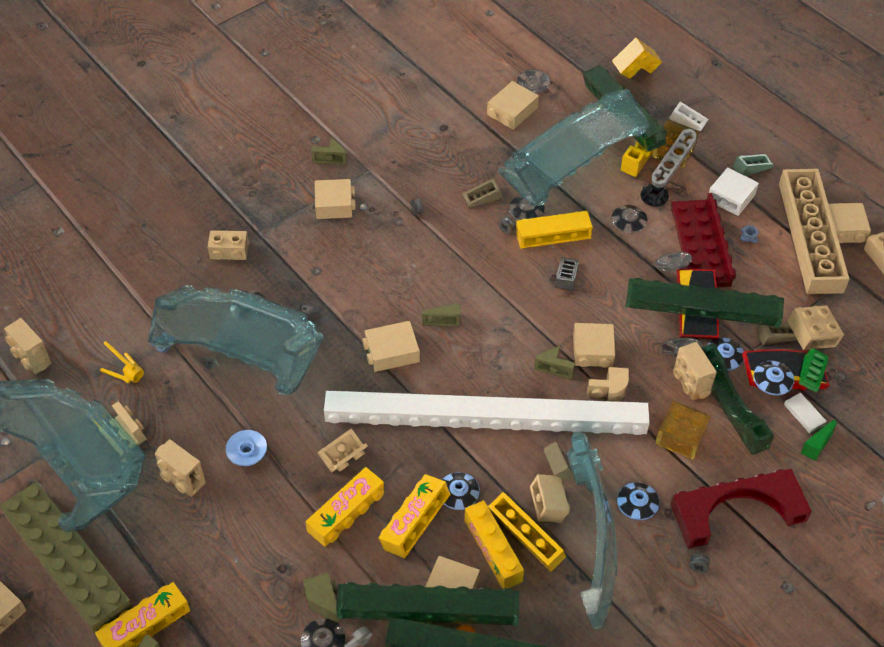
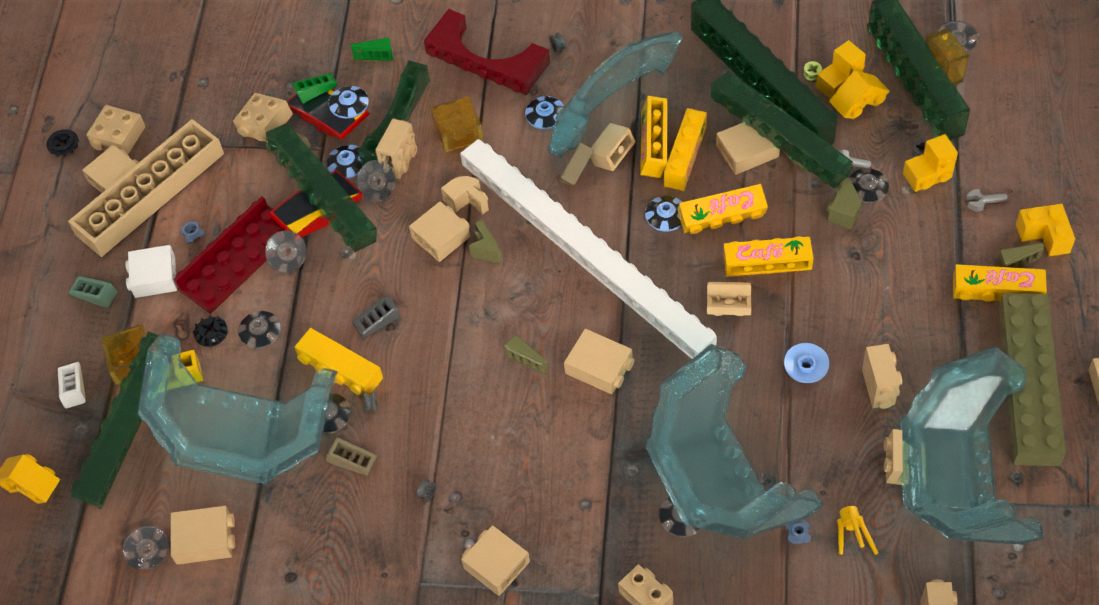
camera: 130 degrees left, 5 degrees up
(672, 157) = (160, 324): light grey beam -> none
(805, 413) = (355, 74): white tile -> none

